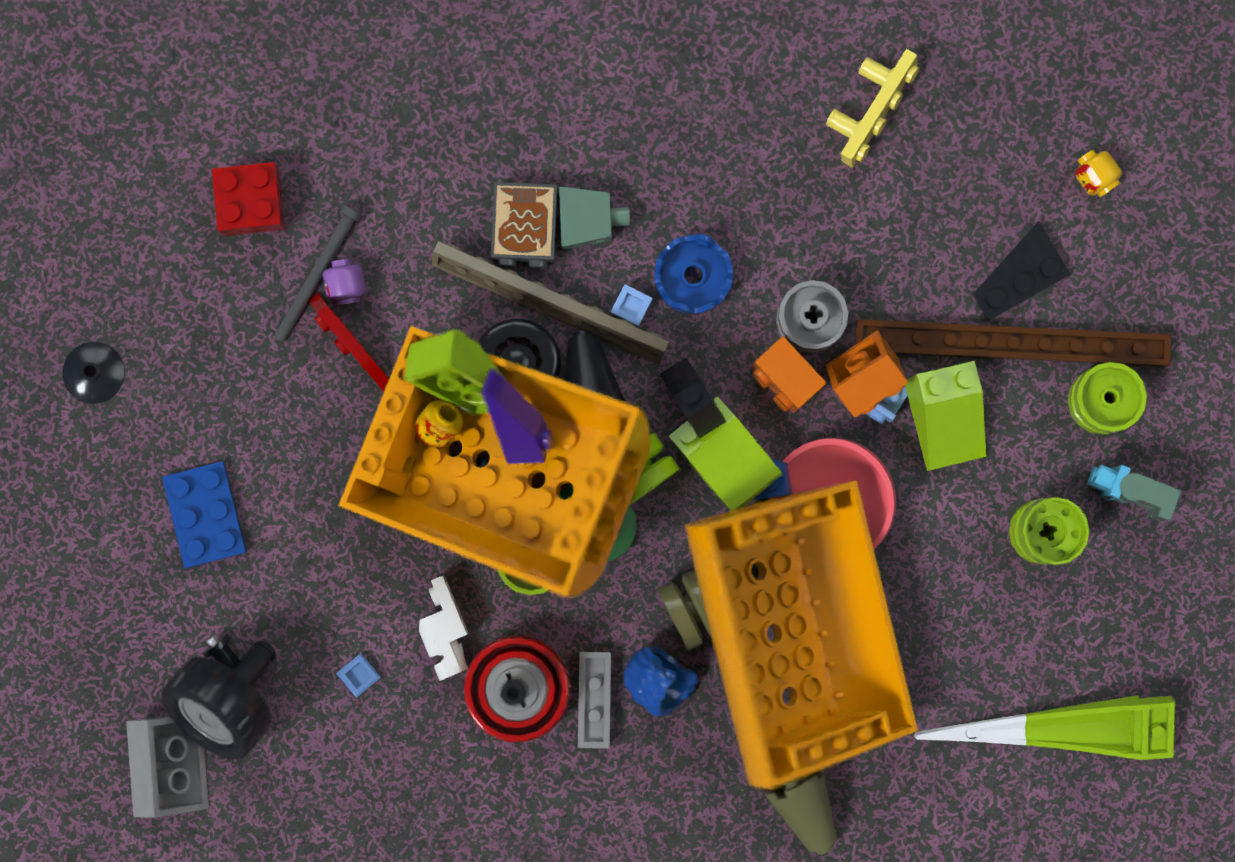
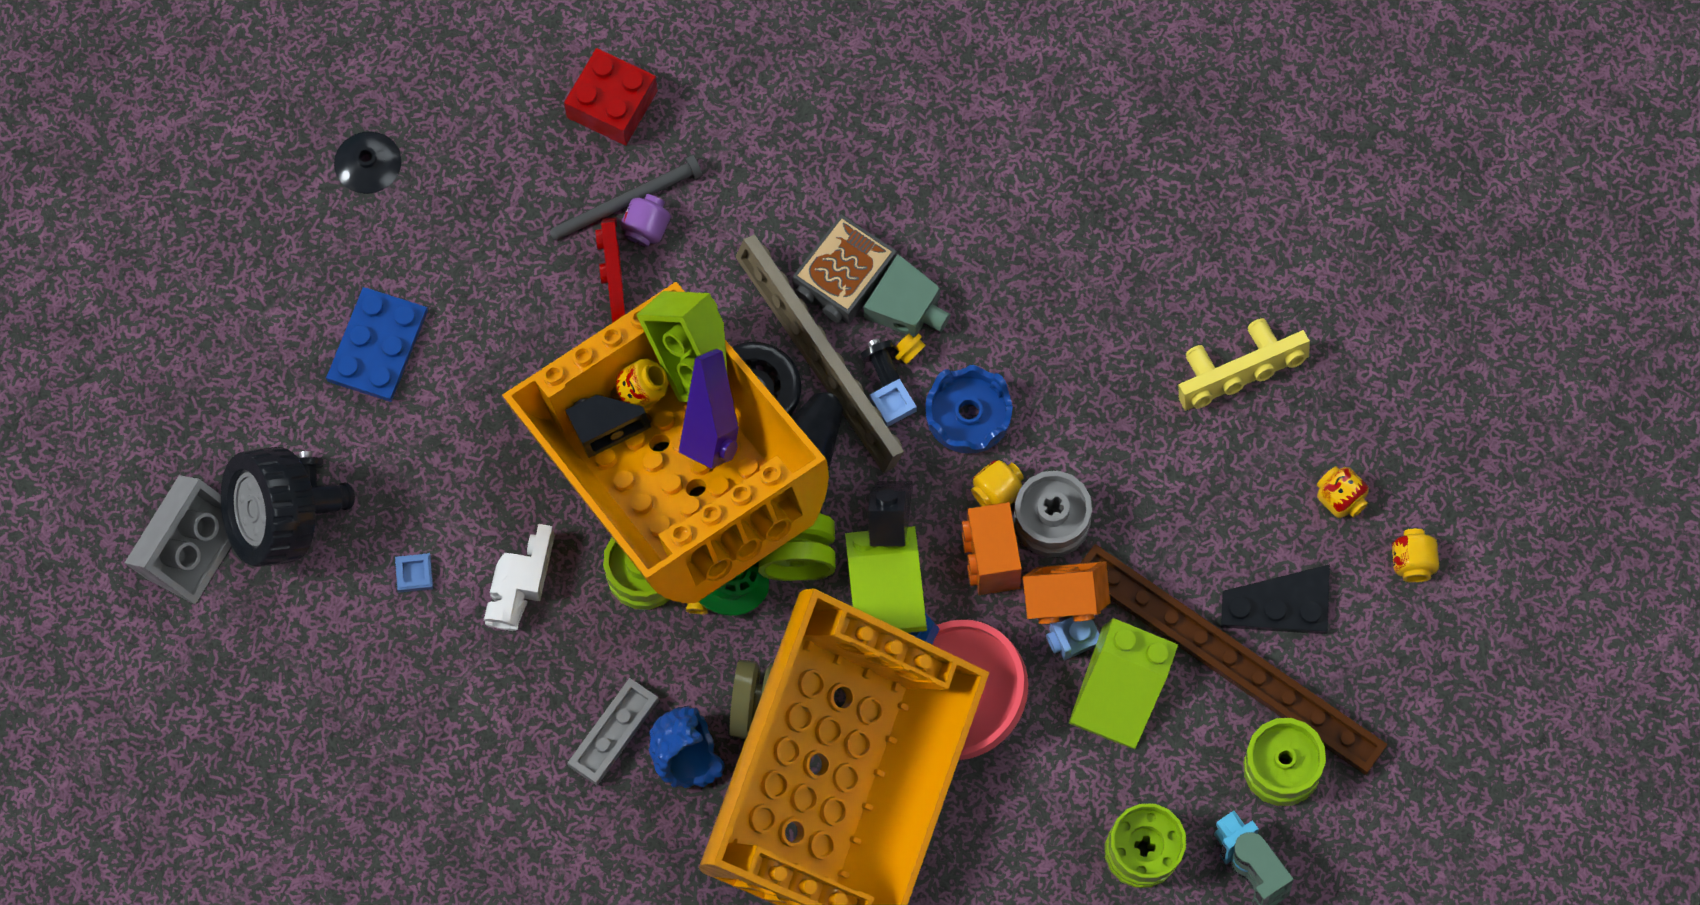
camera: 35 degrees right, 15 degrees down
(429, 472) = (605, 422): none -> black slope
(517, 688) = (549, 673): red wheel -> none
(602, 278) = (879, 355): none -> black piece
(615, 253) = (909, 347): none -> yellow plate
(755, 321) = (997, 483): none -> yellow head
(1013, 157) = (1342, 492): none -> yellow head

